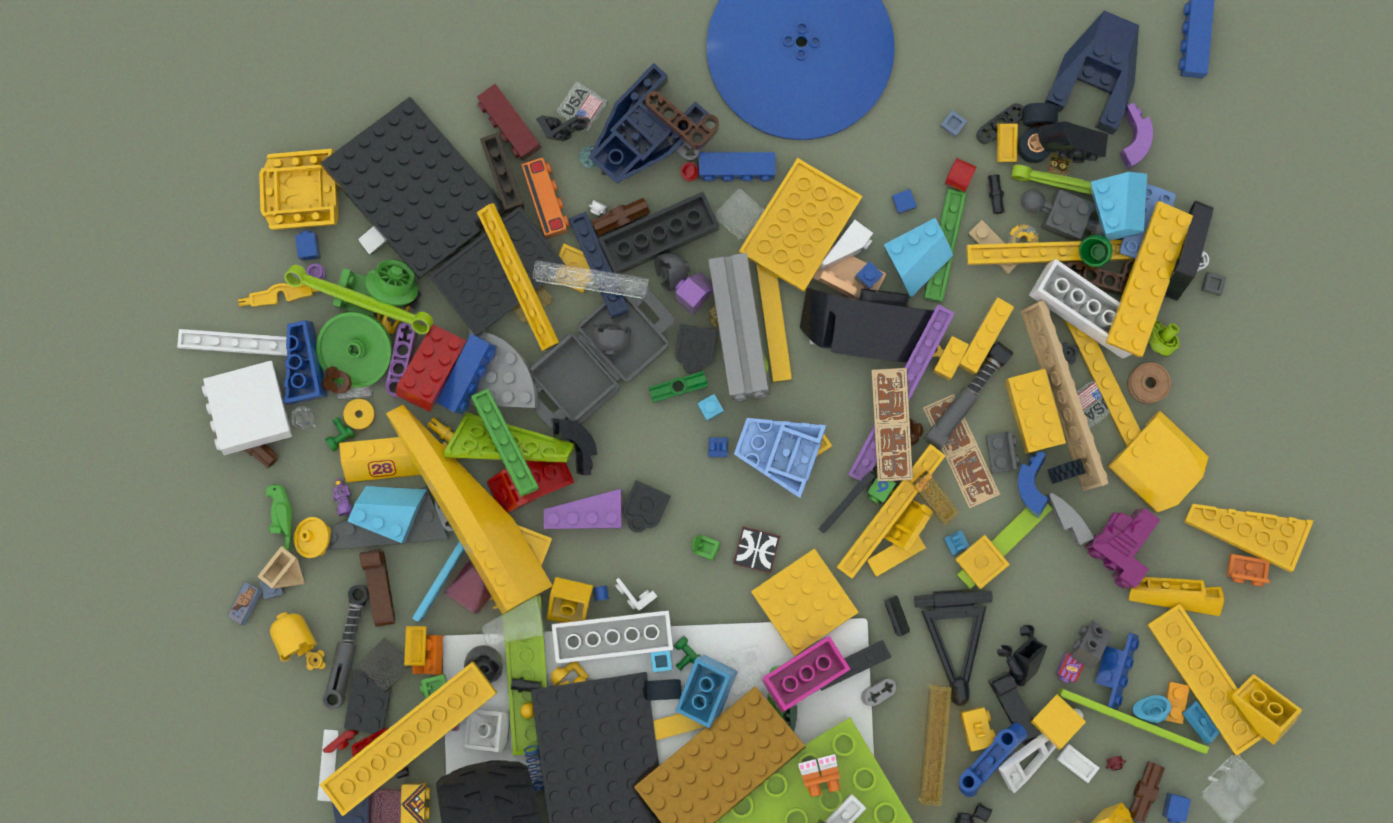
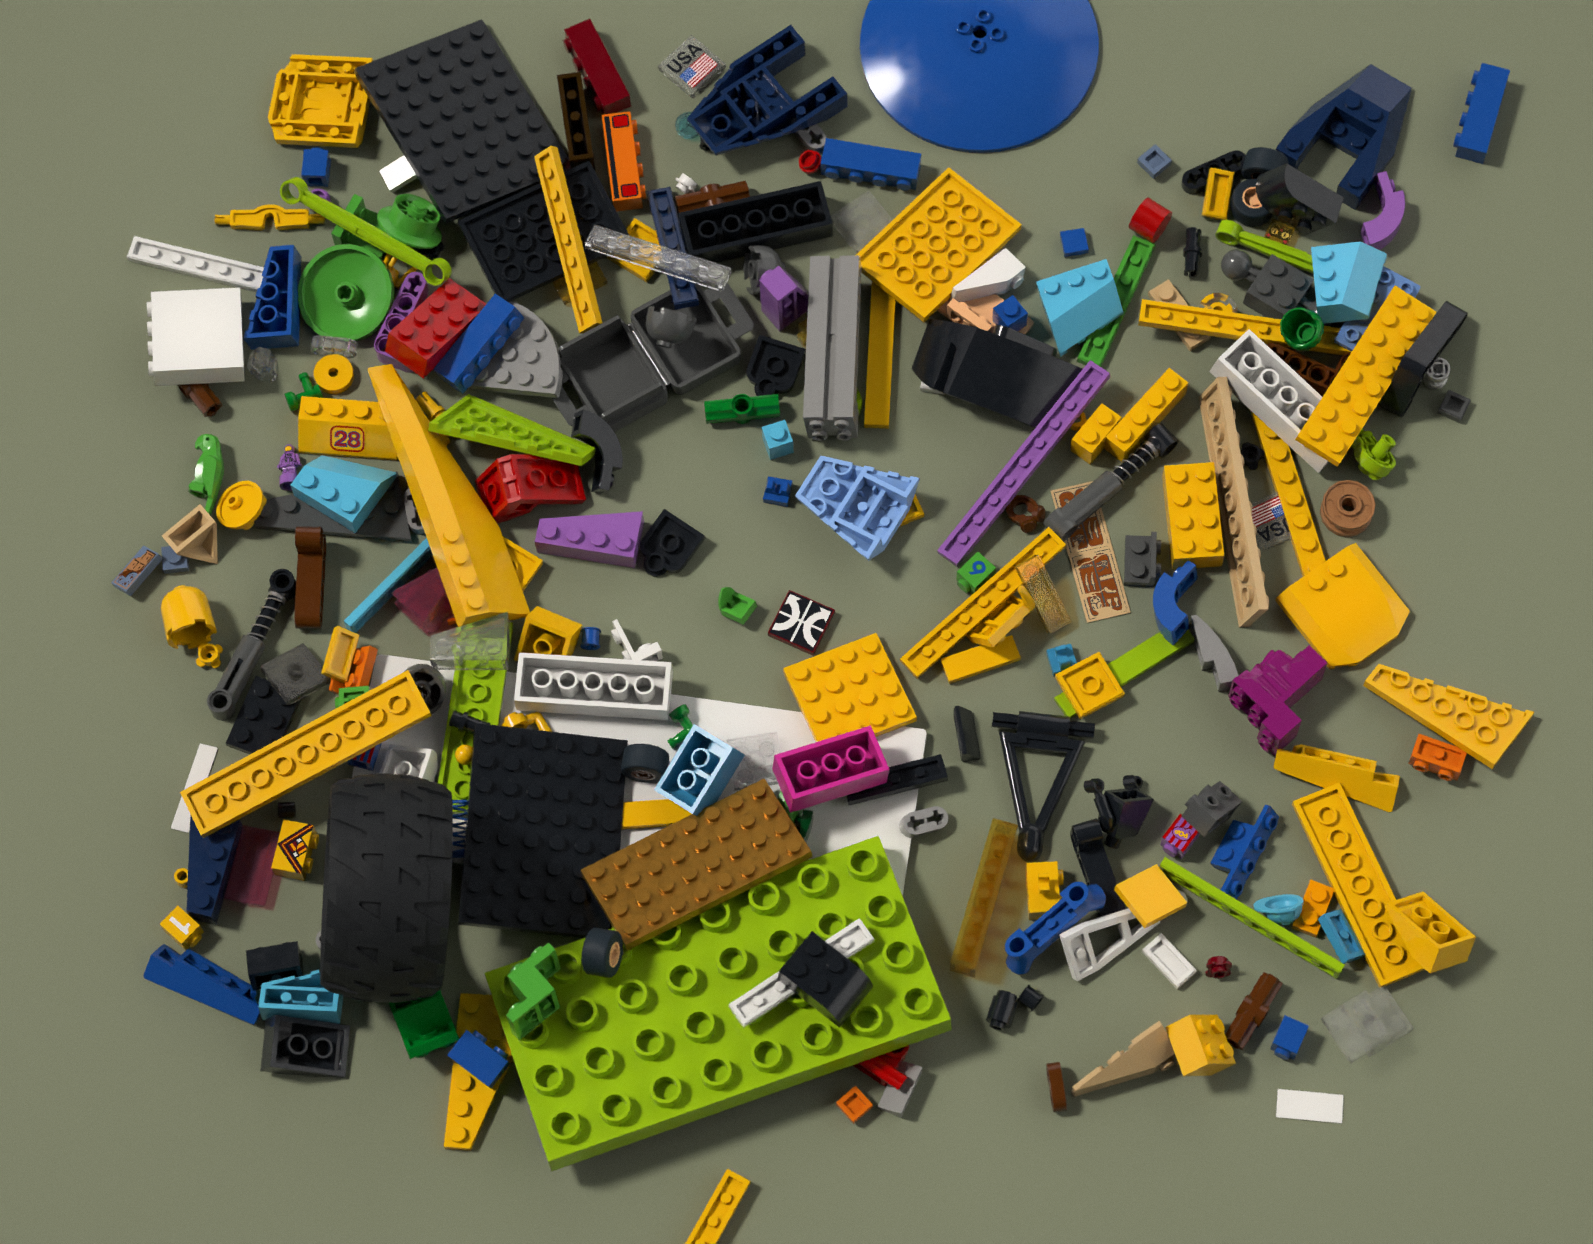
camera: 15 degrees right, 15 degrees down
(328, 382) = (312, 316): reddish brown piece -> none
(340, 742) = (217, 759): red piece -> none
(504, 442) = (508, 426): bright green tile -> none
(556, 130) = (666, 82): black bracket -> none
(661, 661) = (649, 726): medium azure brick -> none
(678, 118) = (808, 89): reddish brown beam -> none
(829, 772) = (835, 885): orange hips -> none
(847, 501) = (928, 579): black tile -> none
(892, 424) = (1004, 495): sticker -> none
(1066, 471) = (1219, 592): black bush -> none

